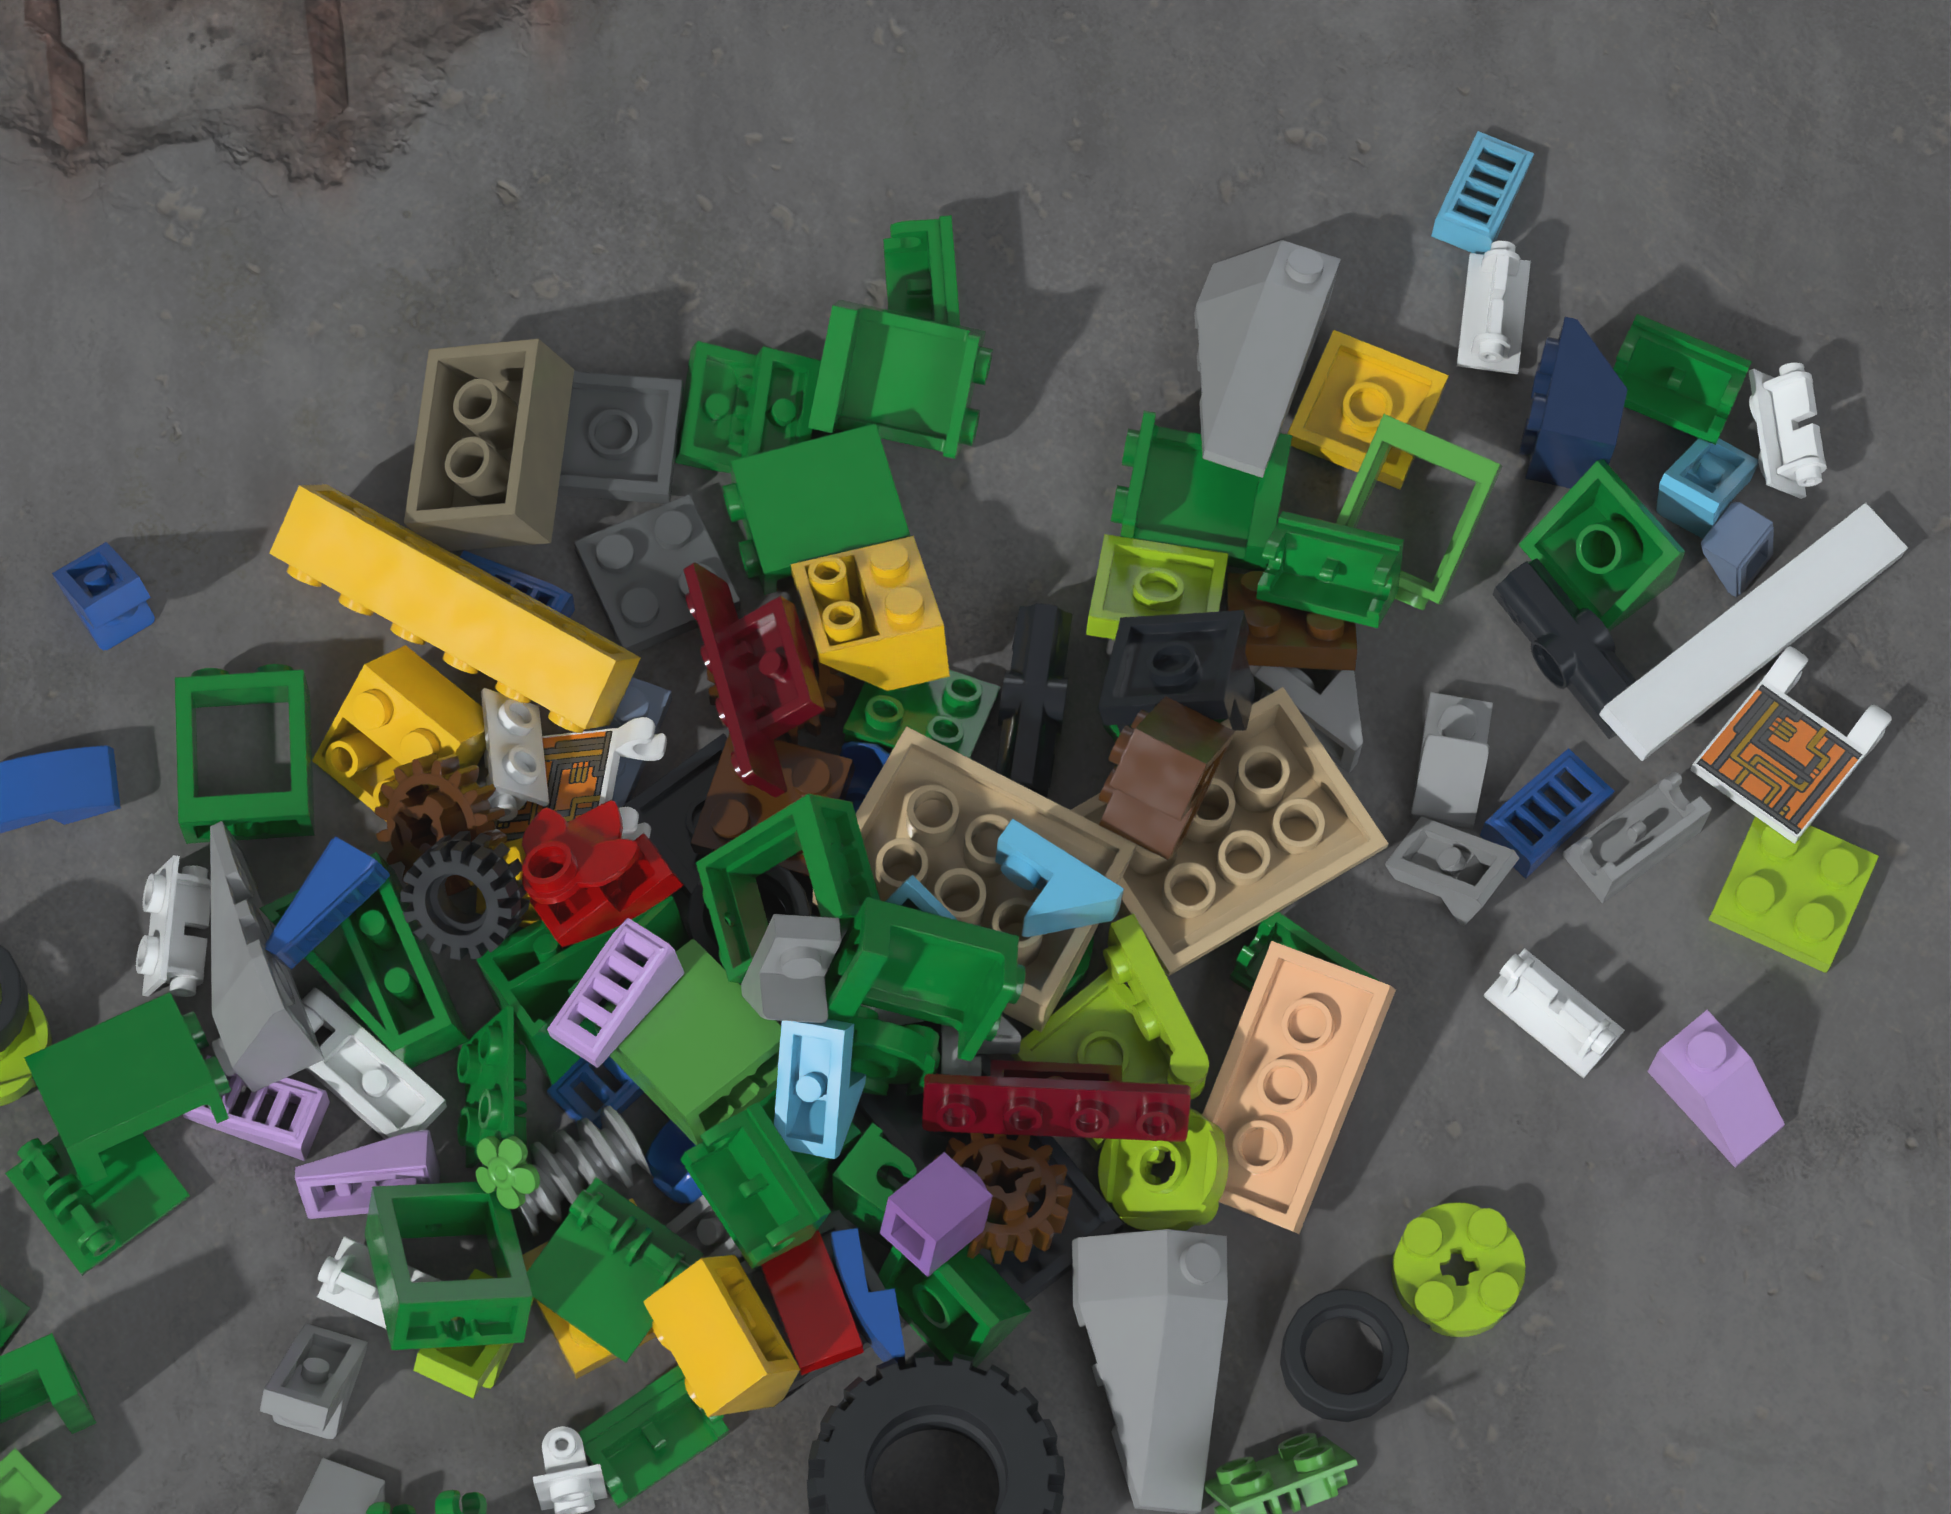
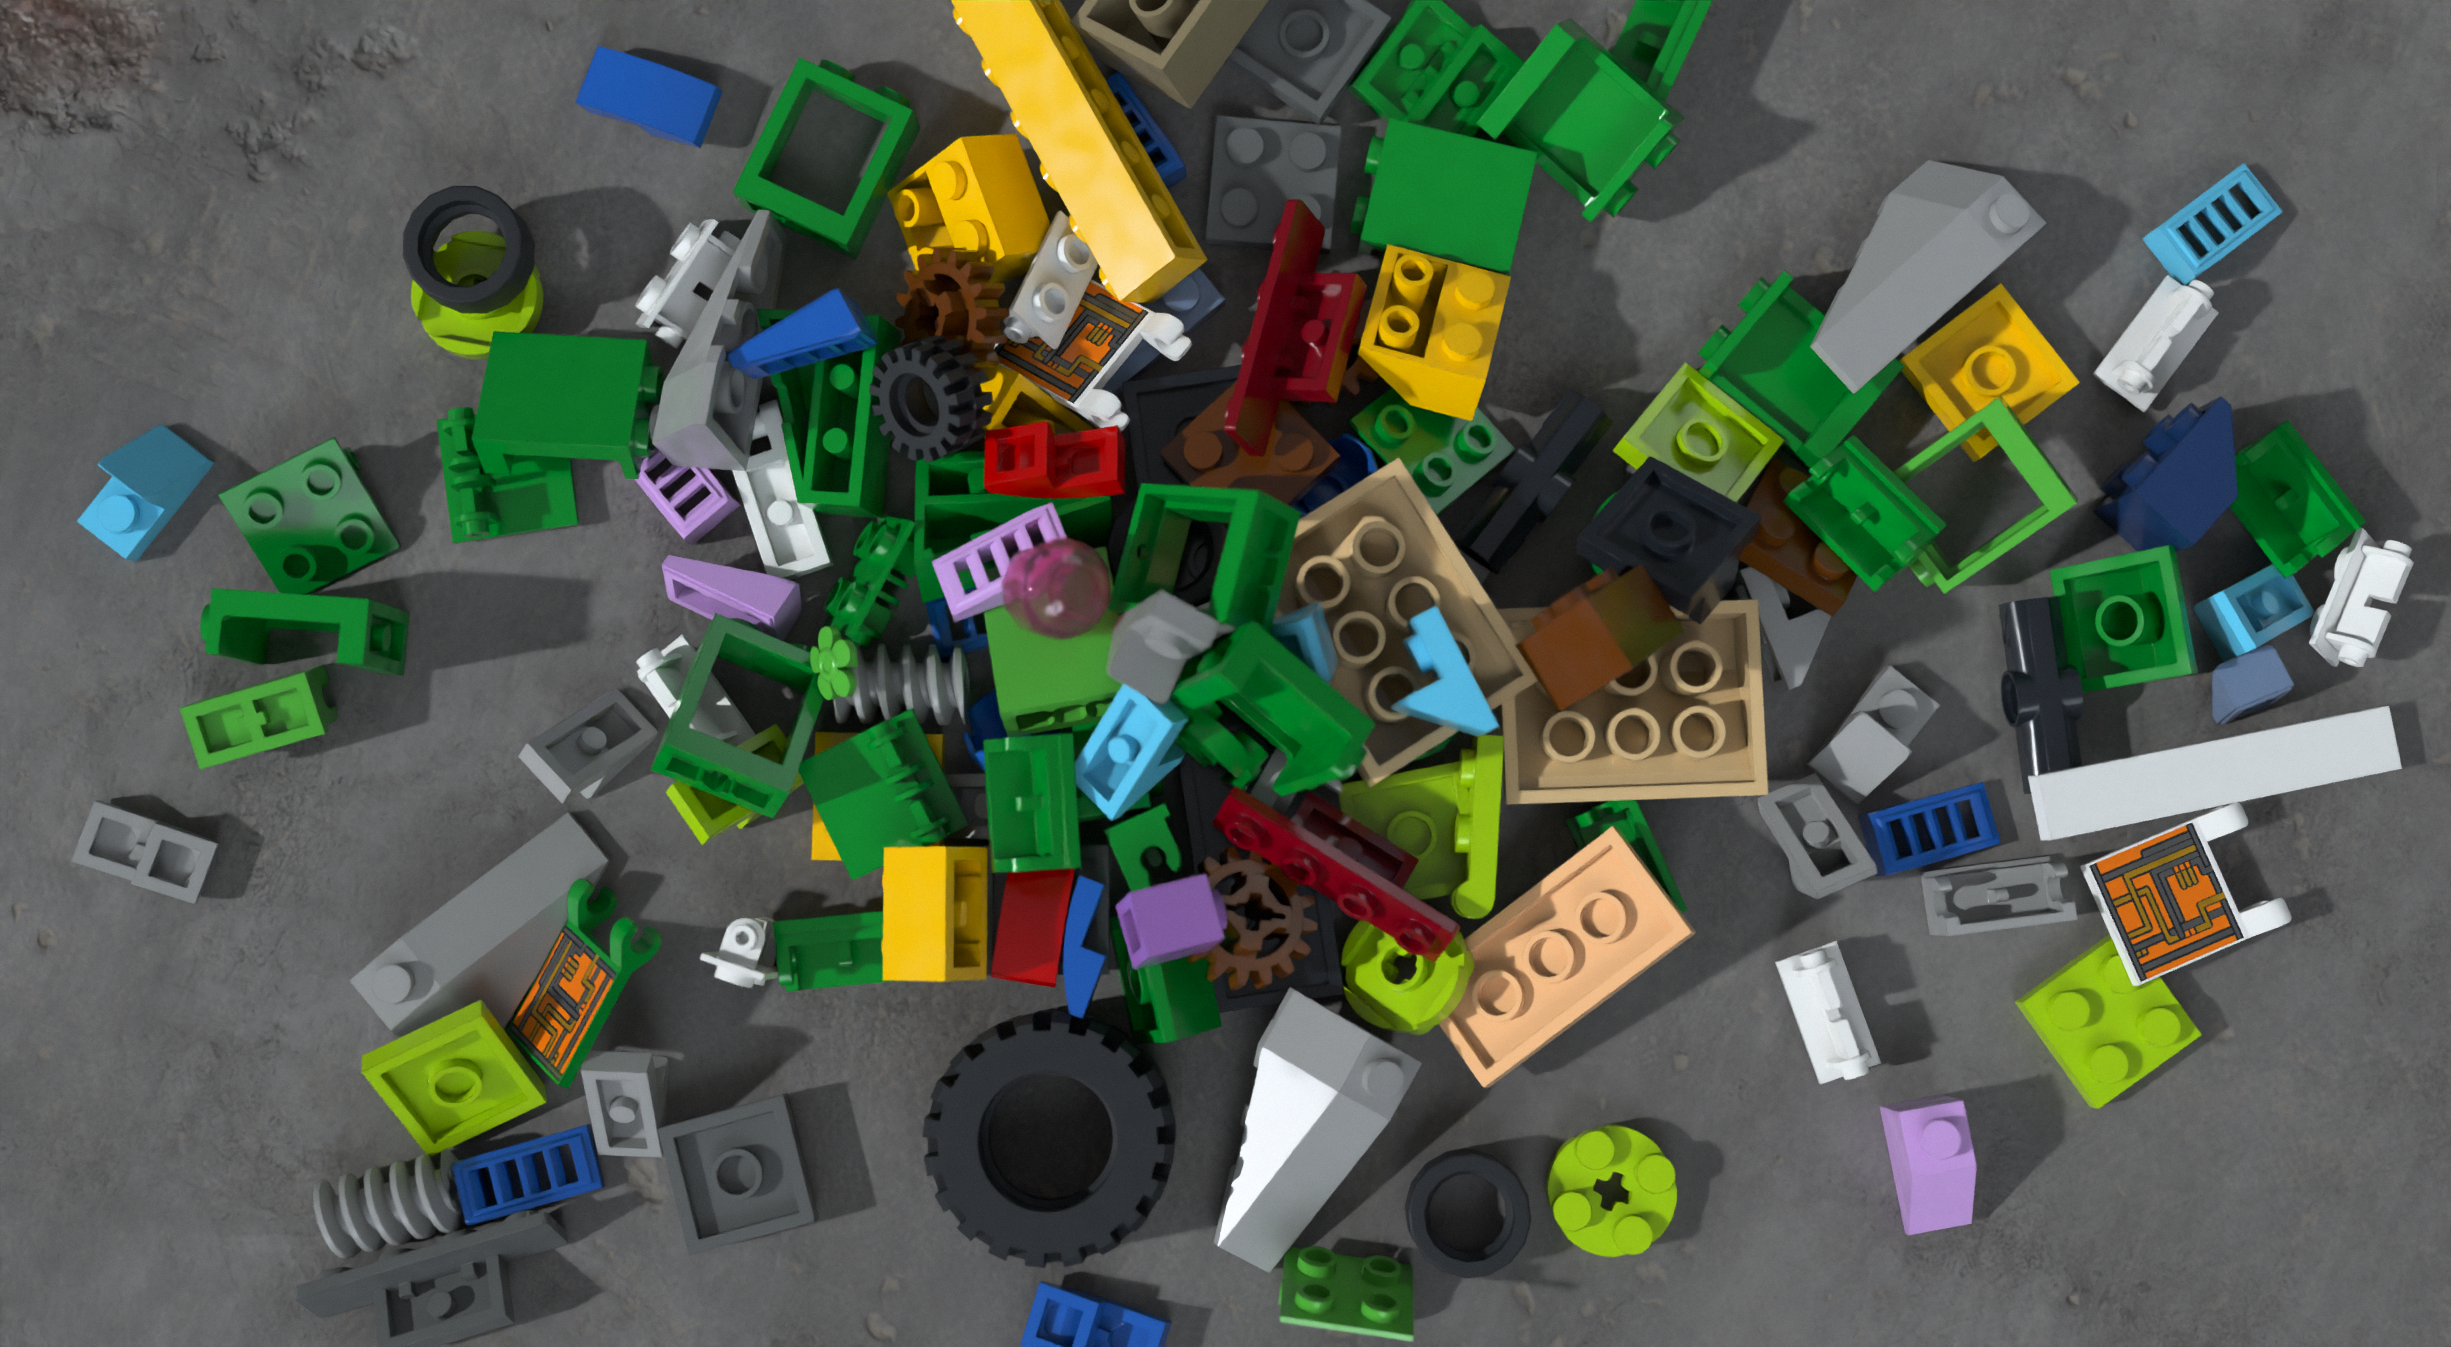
camera: 35 degrees right, 15 degrees up
(574, 853) = (1049, 413): red plate -> none
(675, 983) = (1057, 589): none -> clear pink hair

